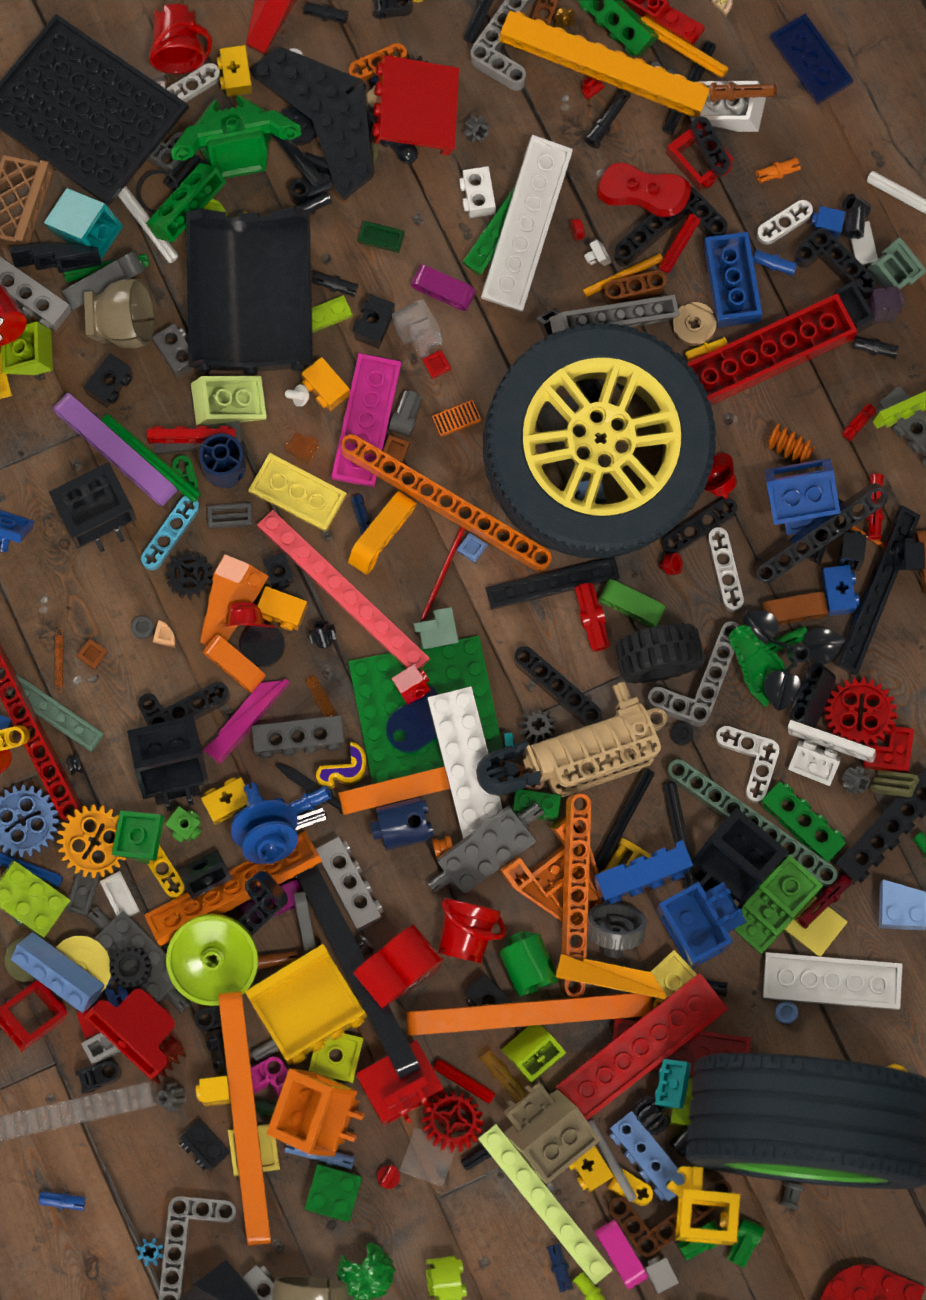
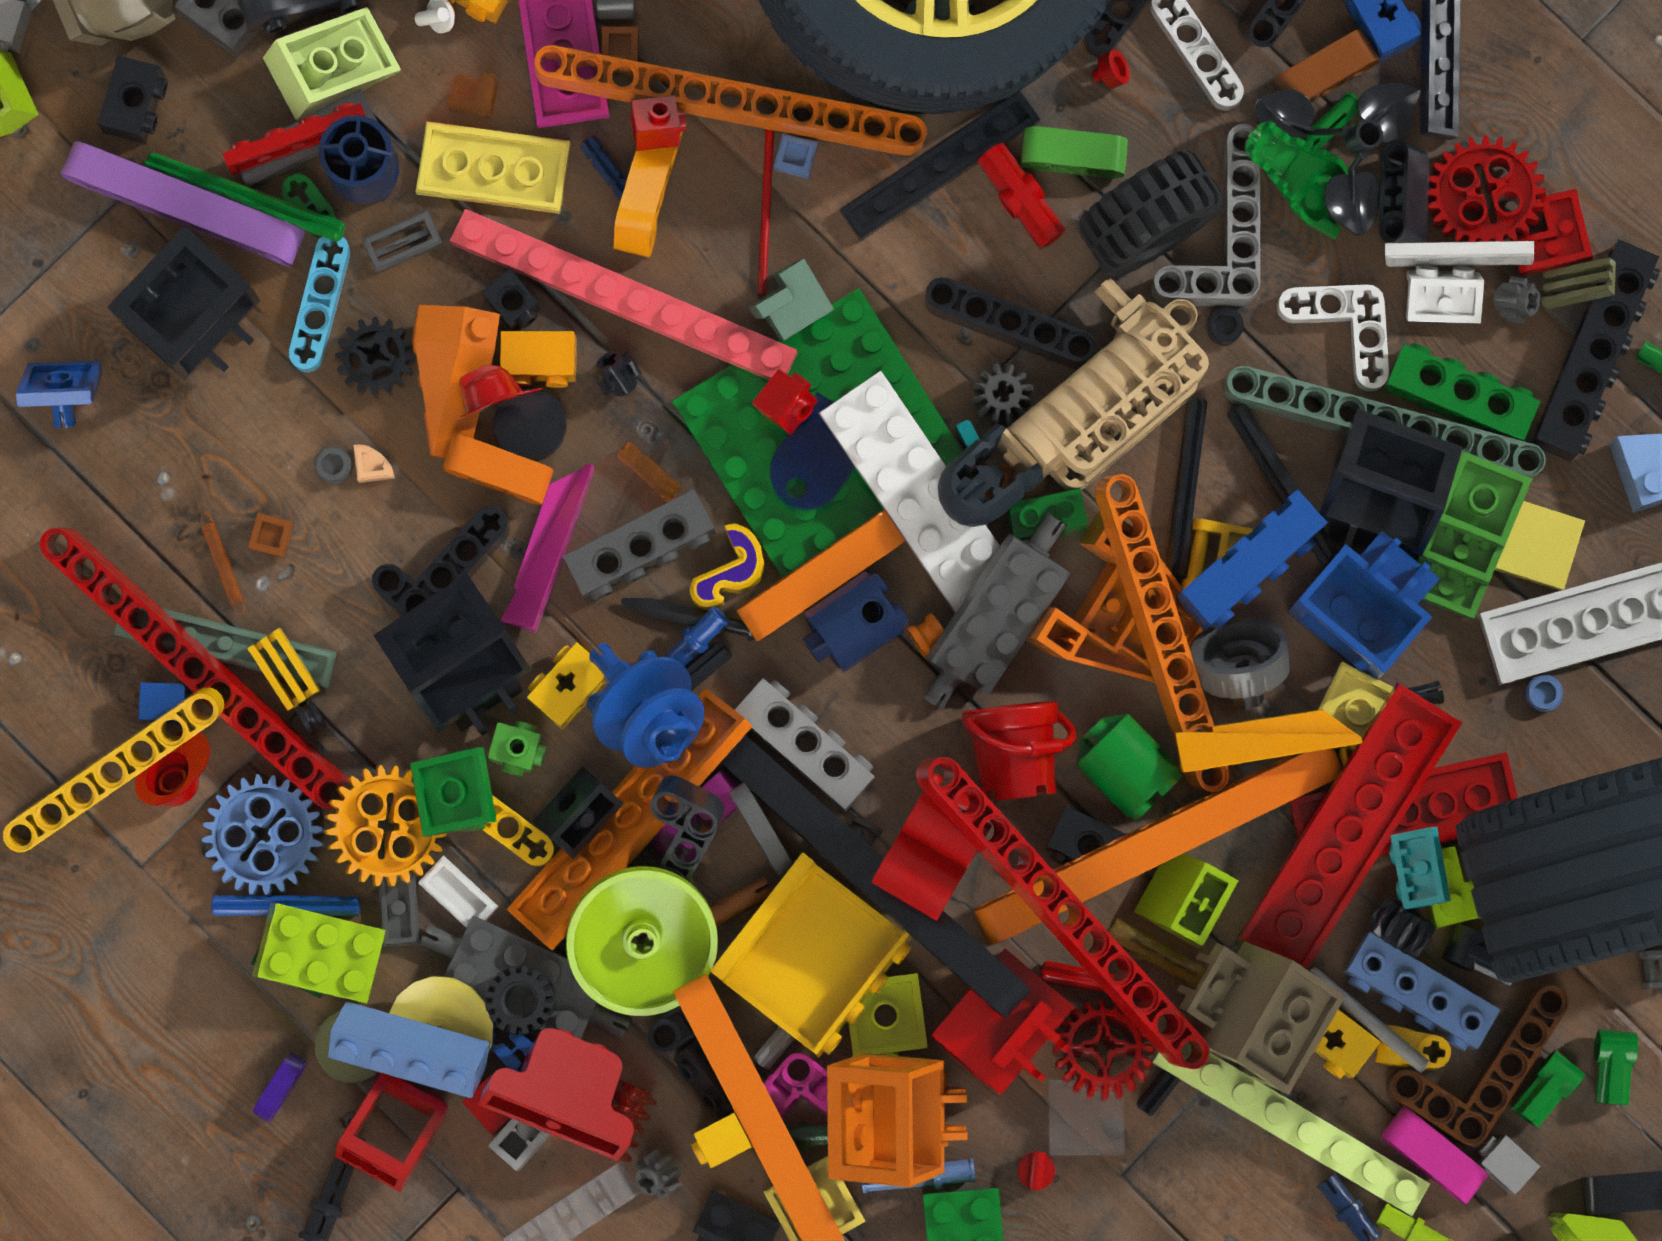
camera: 20 degrees left, 5 degrees up
(66, 713) = (266, 643): none -> yellow tile
(97, 1077) = (530, 1185): black piece -> none
(398, 500) = (656, 123): none -> red brick
(463, 1039) = (1046, 908): none -> red beam
(692, 1193) = (1516, 1023): yellow piece -> none
(840, 885) = (1544, 490): dark red pin -> none

